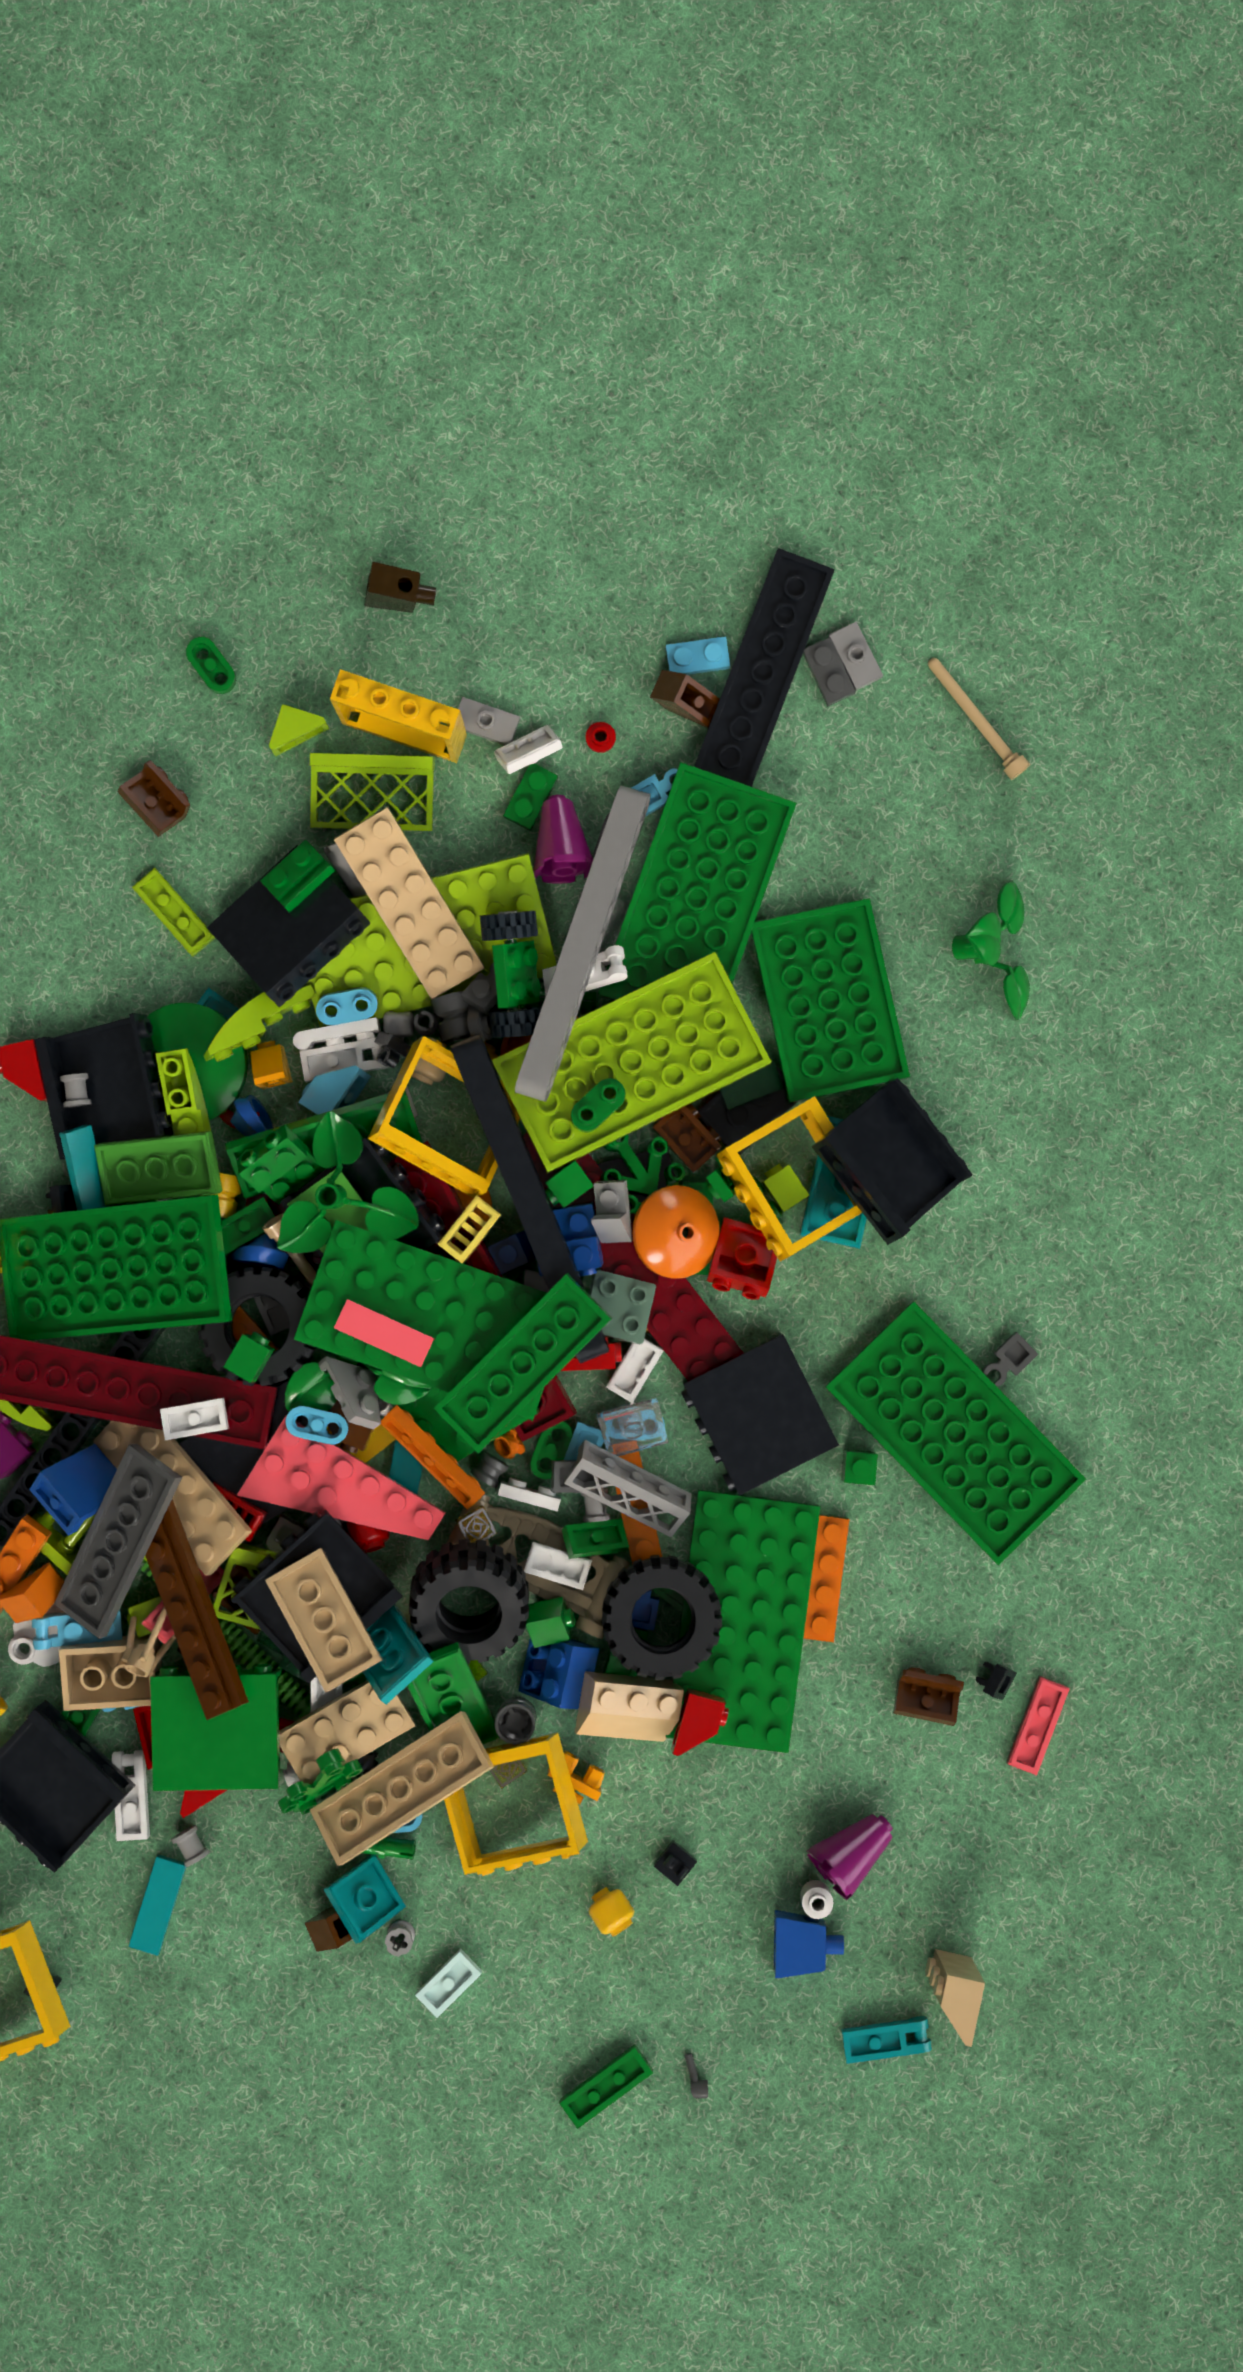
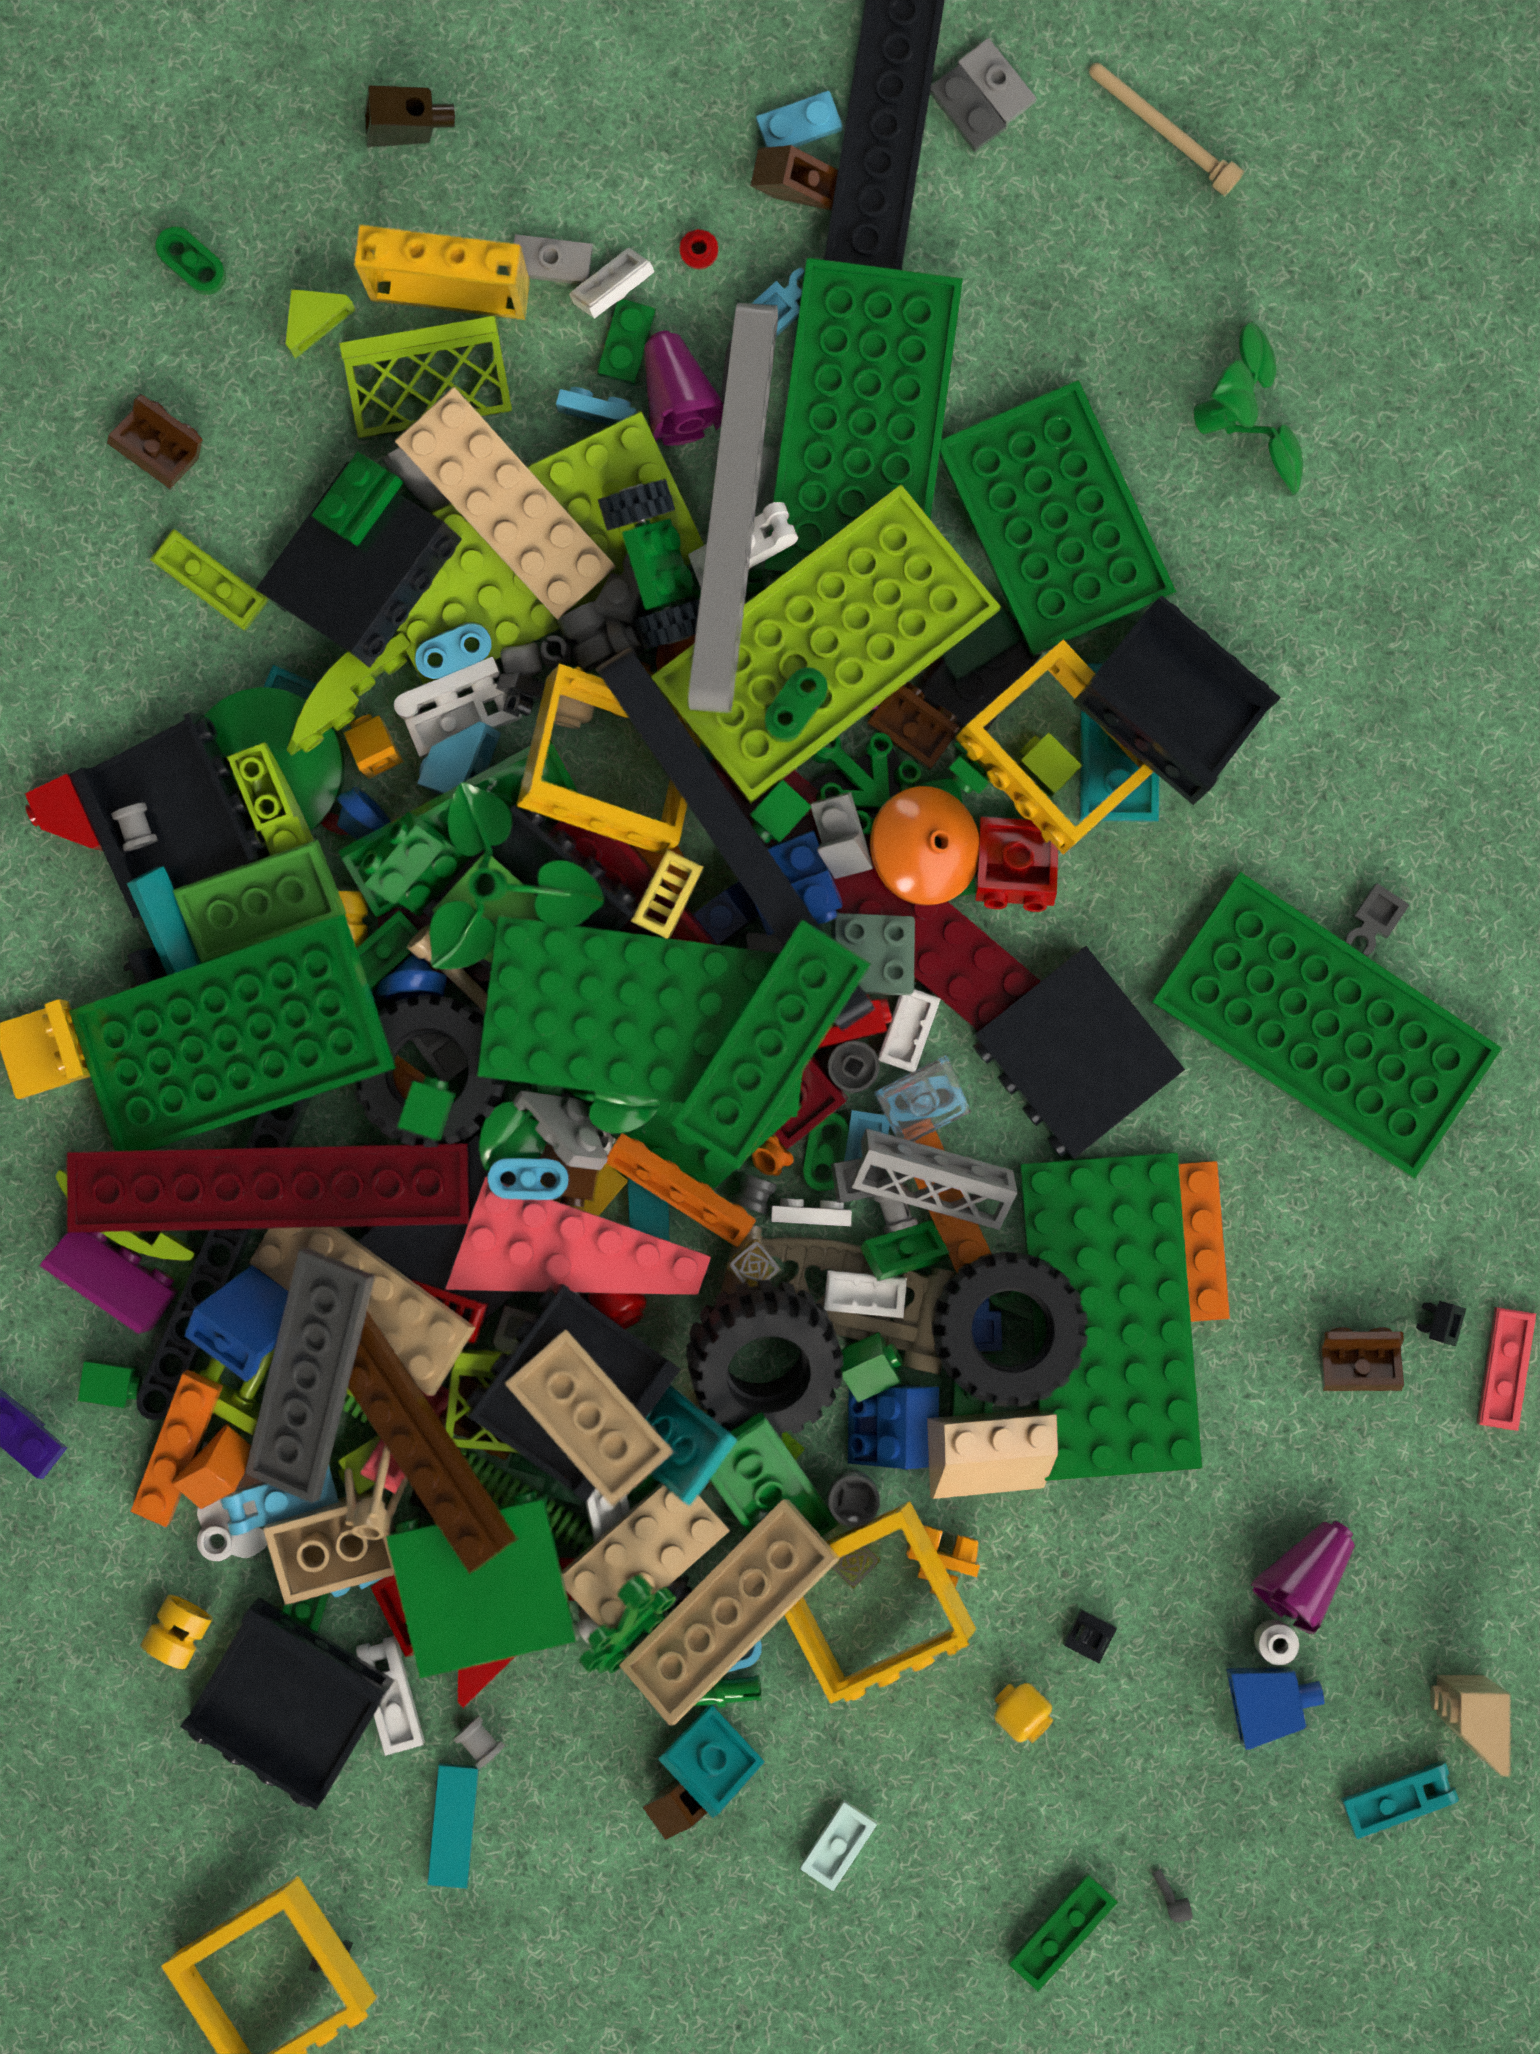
camera: 15 degrees left, 0 degrees up
(194, 1419) = (373, 1203): white plate -> none
(383, 1333) = (589, 1043): coral tile -> none
(394, 1930) = (758, 1792): light grey bush -> none
(485, 837) = (581, 404): none -> medium azure plate
(585, 1389) = (853, 1066): none -> dark grey wheel
(698, 1720) = (1082, 1449): red slope -> none
(859, 1467) = (1215, 1092): green brick -> none

